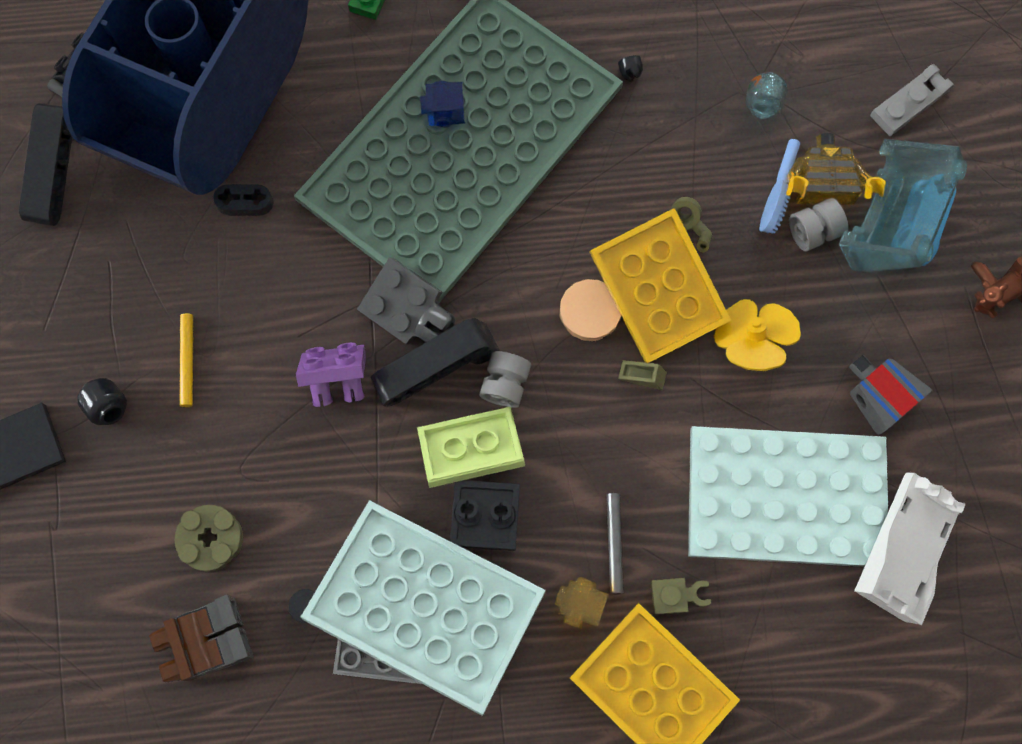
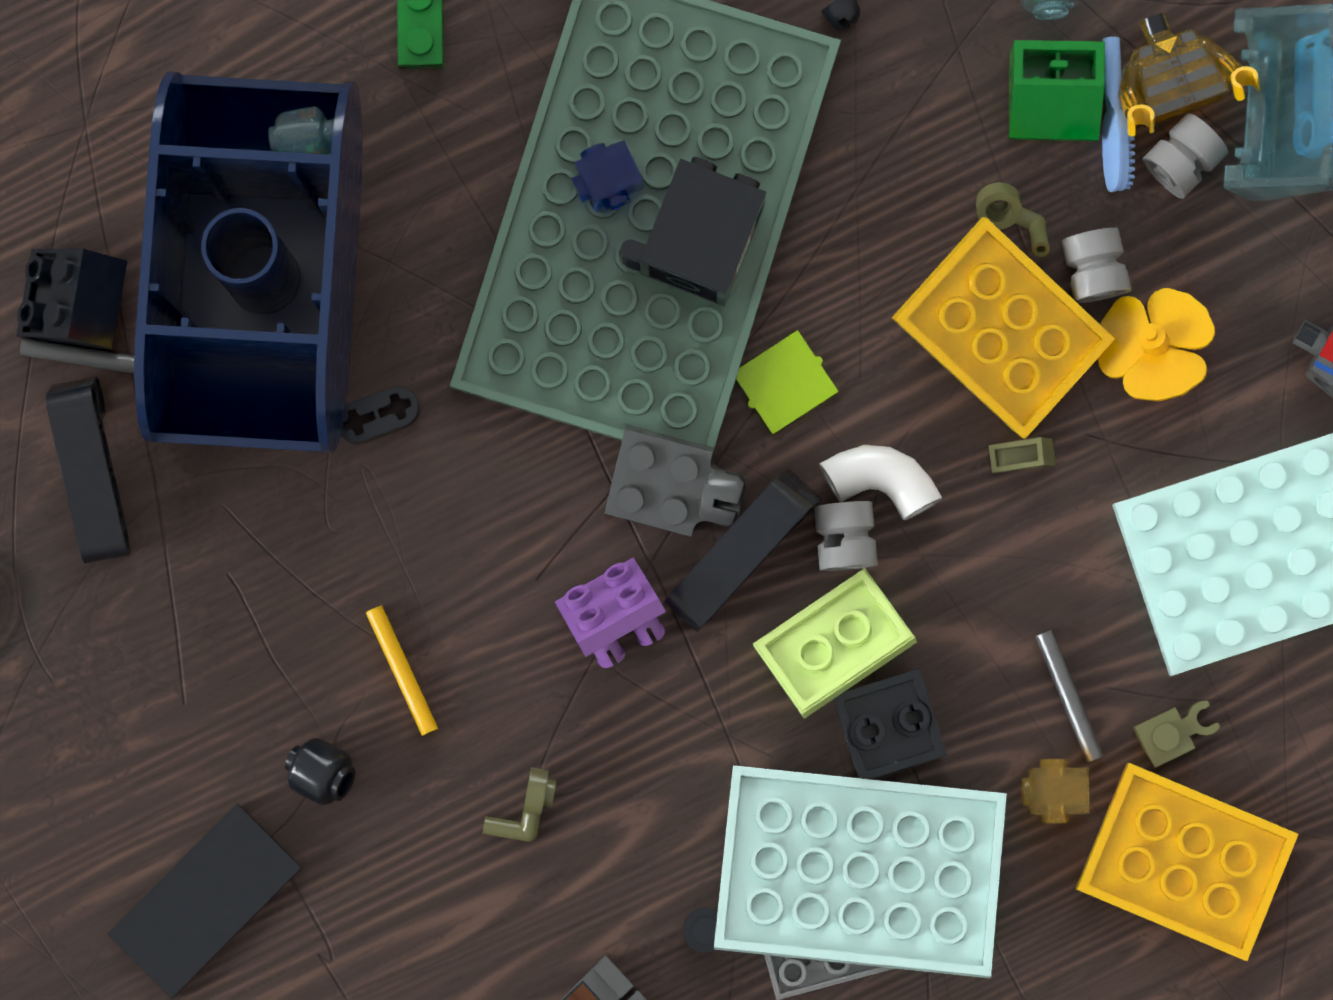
camera: 20 degrees left, 10 degrees up
(195, 524) = (564, 904): olive plate -> none
(234, 469) = (538, 794): none -> olive plate
(486, 151) = (700, 231): none -> black container
(506, 274) = (785, 382): none -> lime piece
(549, 349) = (881, 470): none -> white cylinder
(589, 310) = (918, 393): light nougat tile -> none
(735, 270) = (1095, 259): none -> light grey wheel
(748, 155) = (1056, 90): none -> green slope

